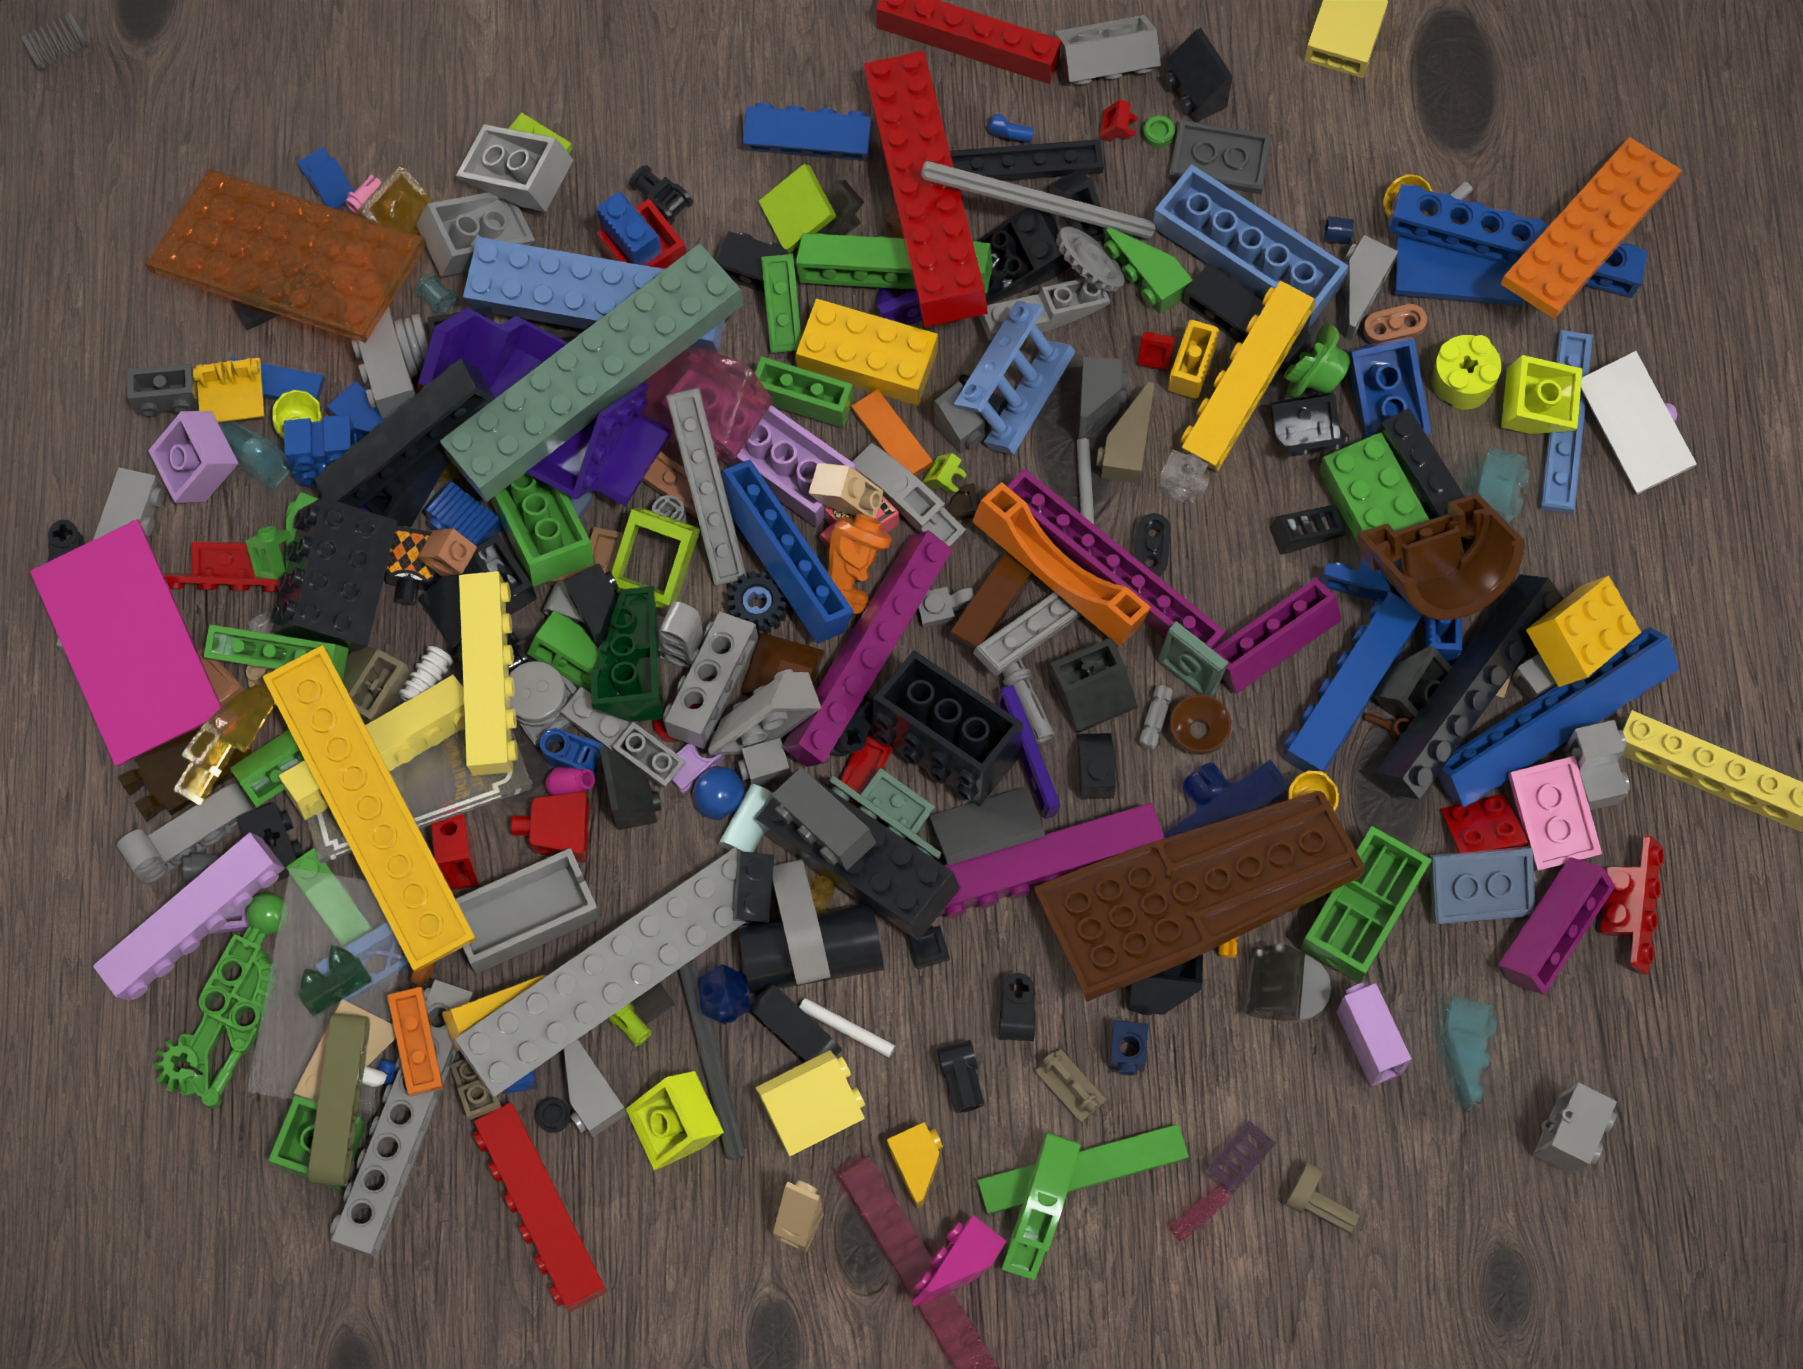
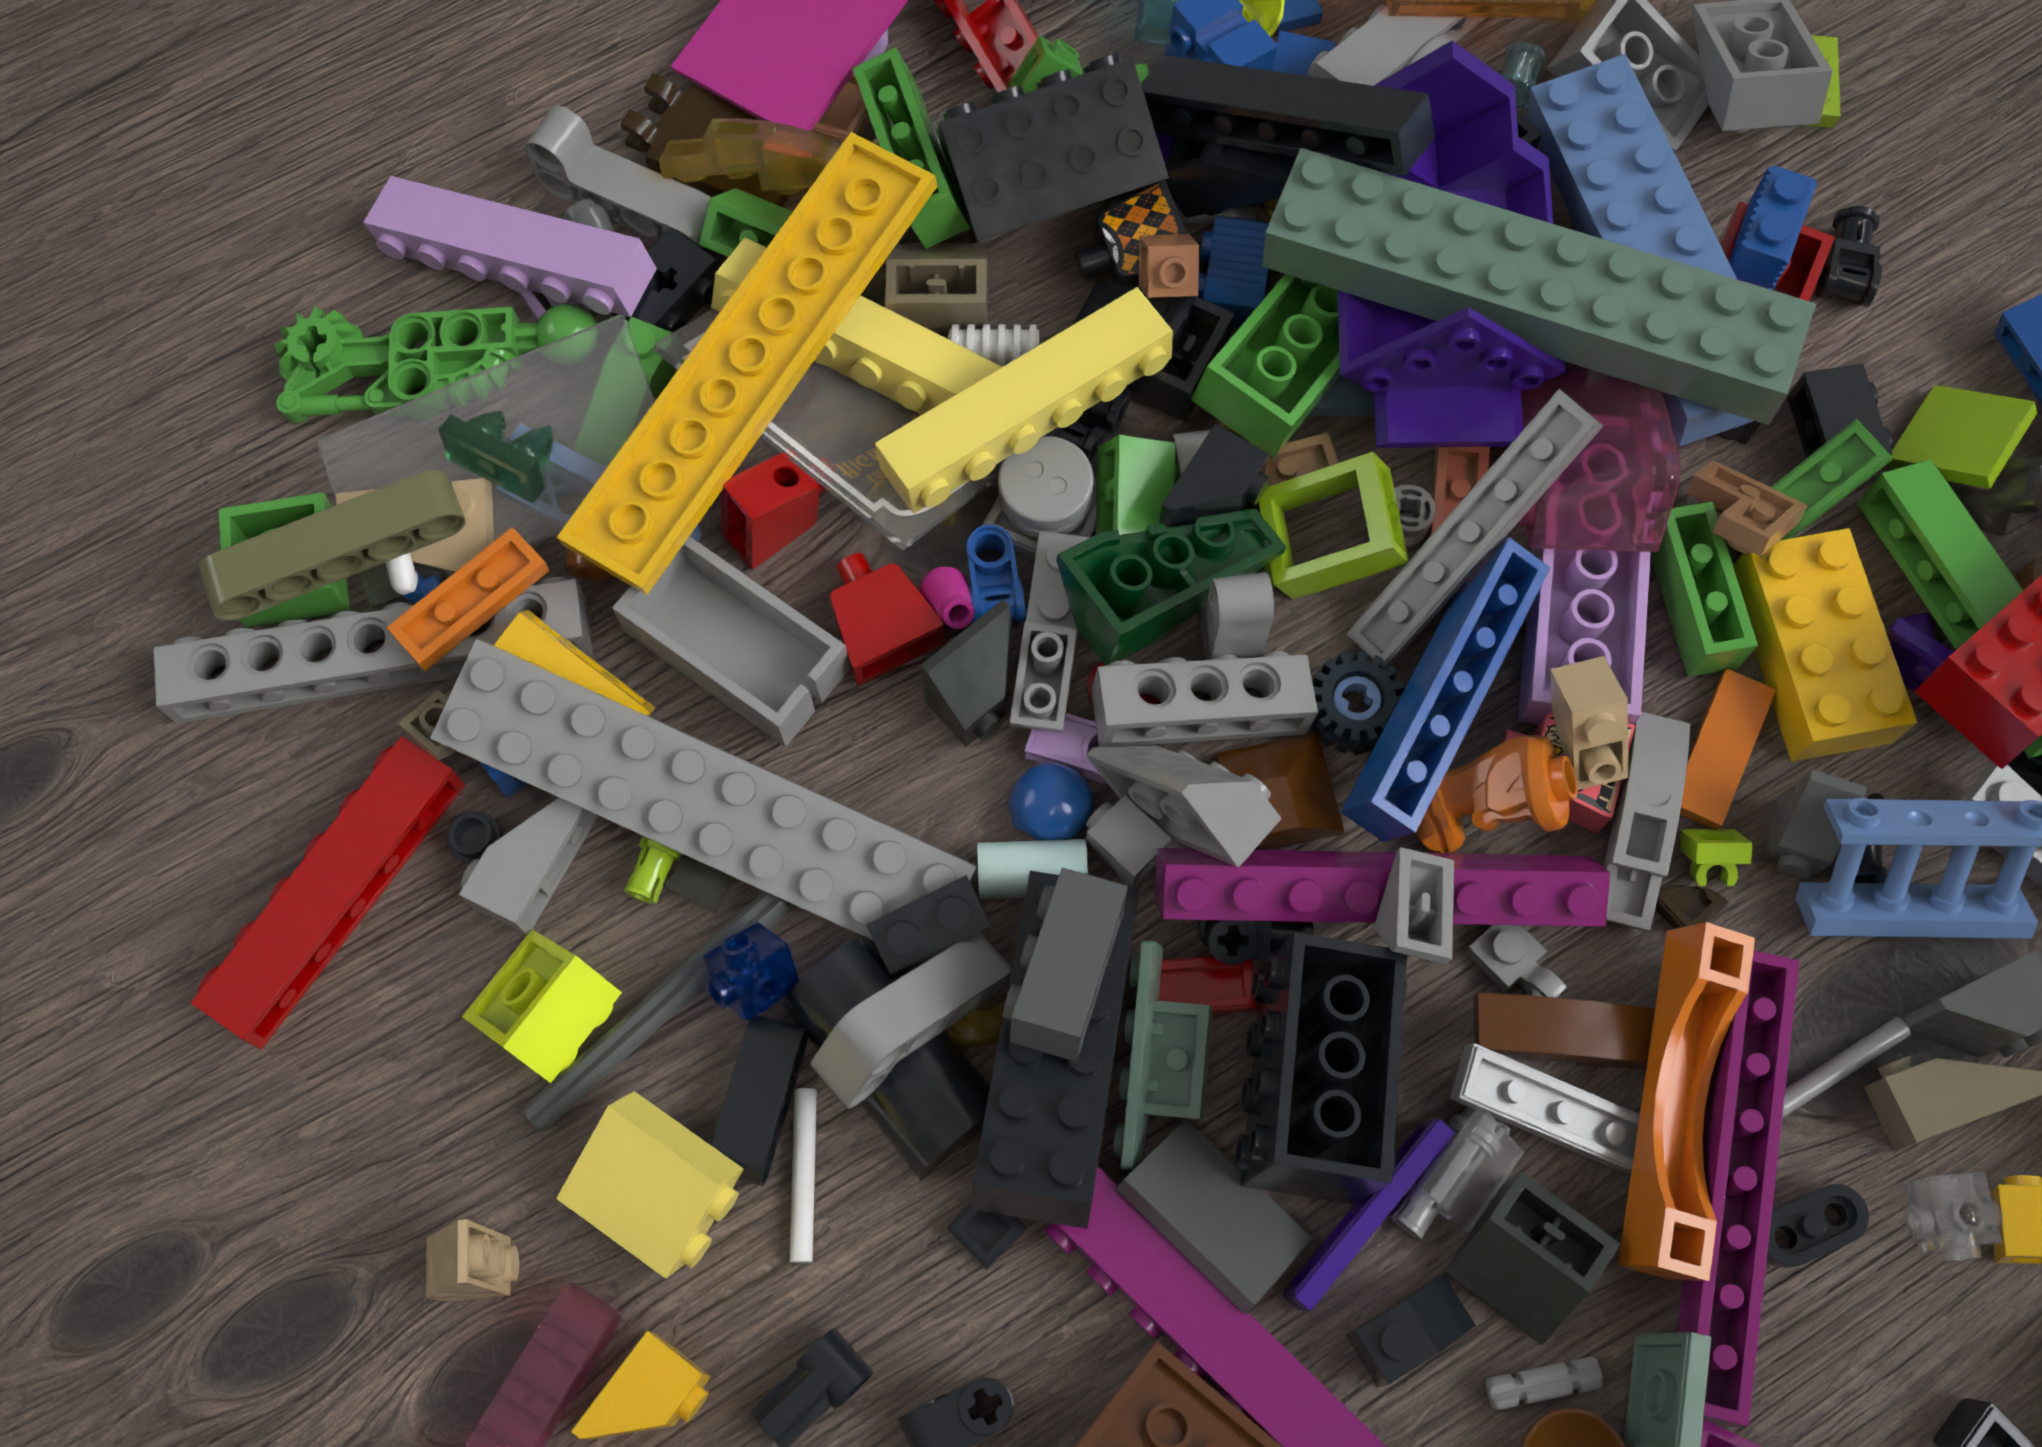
camera: 60 degrees right, 0 degrees up
(778, 336) = (1752, 512): none -> medium nougat plate
(893, 631) = (1418, 906): none -> light grey slope
(1036, 687) = (1473, 1170): none -> clear piece

